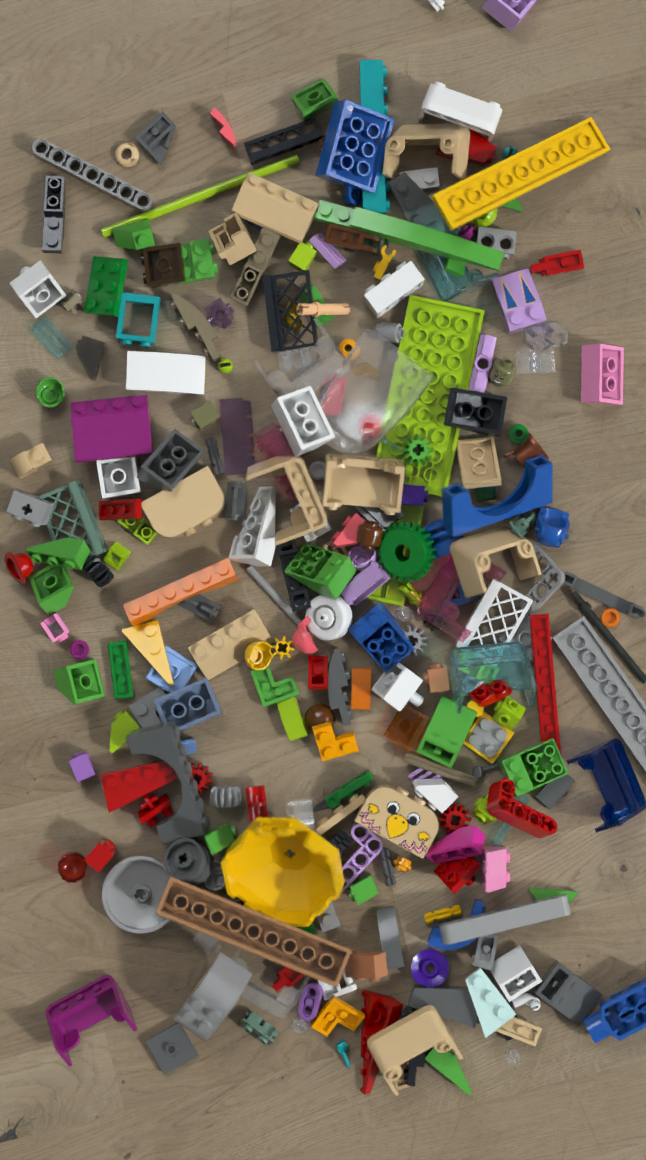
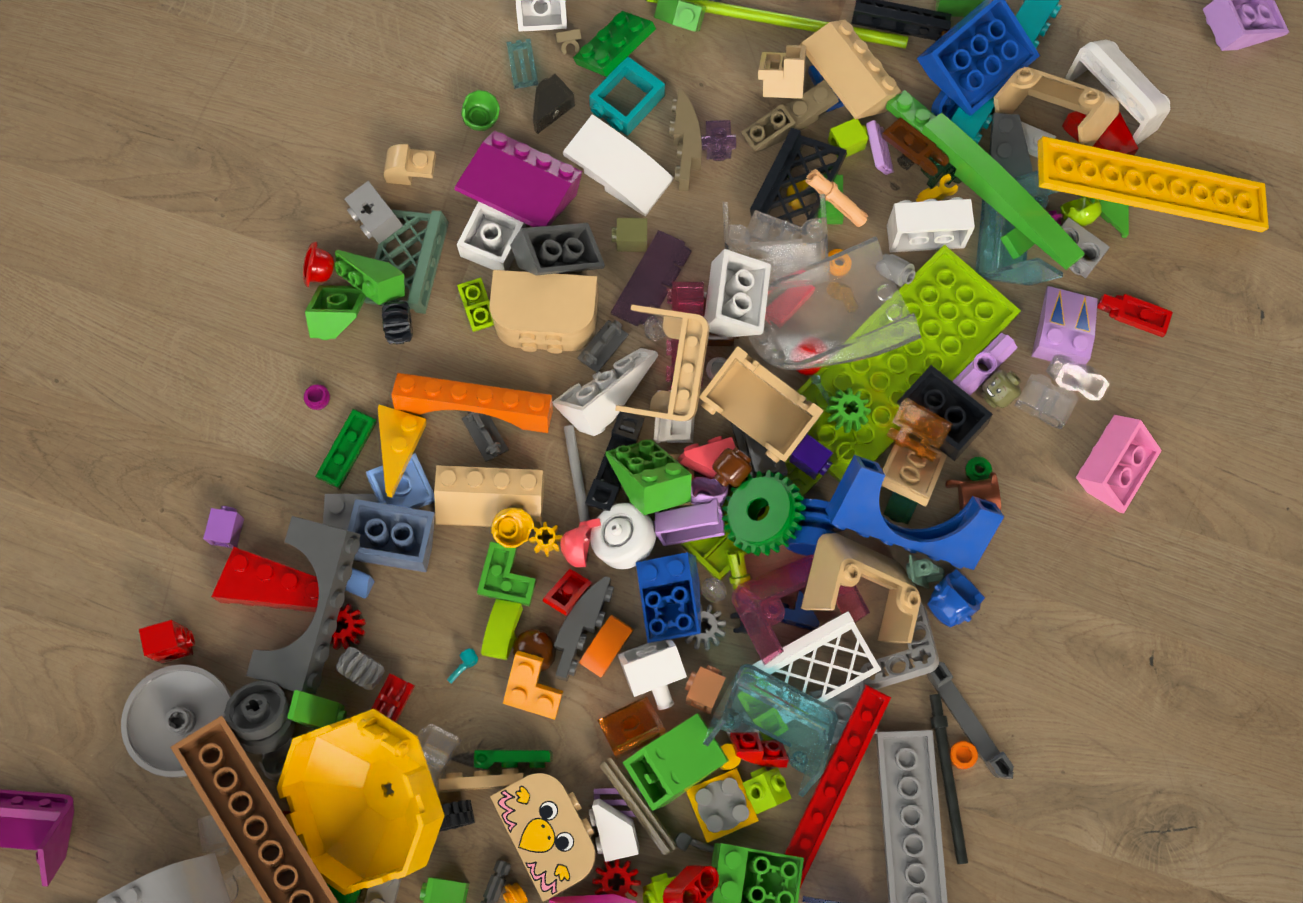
camera: 30 degrees right, 15 degrees down
(55, 627) = (307, 355): bright pink window -> none
(72, 867) = (122, 635): clear red hair -> none
(79, 681) = (291, 430): bright green slope -> none
(117, 556) = (431, 323): lime slope -> none
(120, 509) = (468, 270): red tile -> none
(120, 728) = (305, 506): lime slope -> none
(152, 807) = (256, 632): red hips -> none
(163, 265) = (690, 57): dark brown plate -> none
(198, 261) = (726, 77): bright green plate -> none
(214, 456) = (612, 284): dark grey axle -> none
(227, 369) = (686, 202): lime hinge -> none
(284, 748) = (469, 659): none -> teal hand
(363, 849) = (454, 851): lavender beam -> none
(469, 432) = (921, 423): none -> clear orange plate

